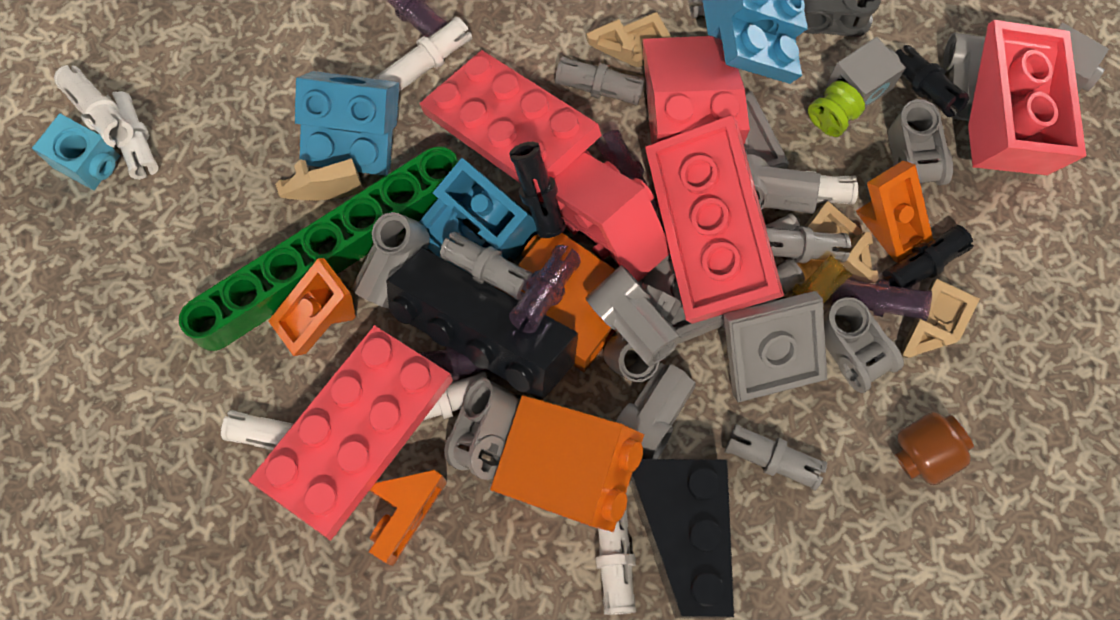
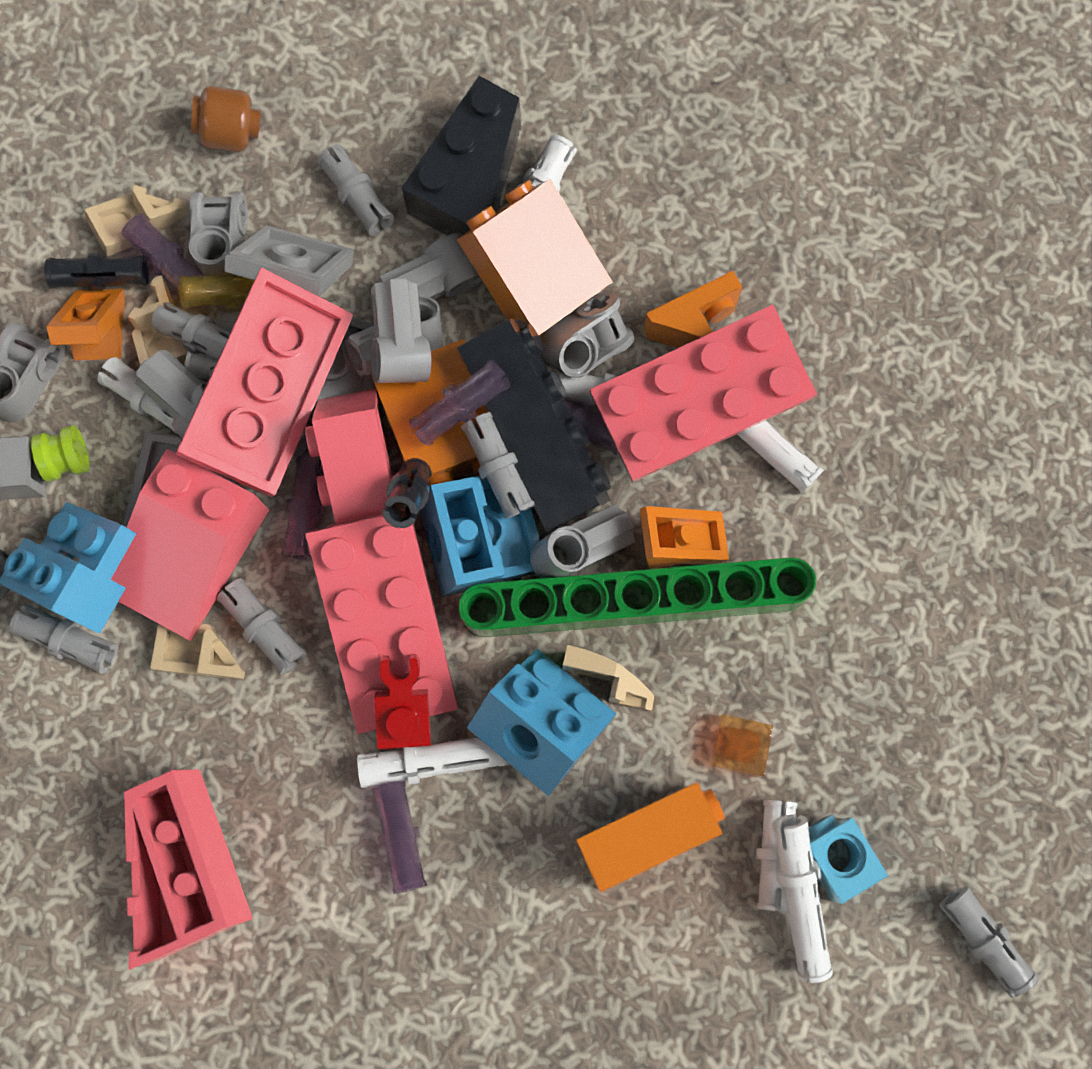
camera: 145 degrees left, 5 degrees up
(192, 195) = (741, 745): none -> clear orange plate
(223, 79) = (651, 835): none -> orange brick
(455, 69) = (402, 712): none -> red plate

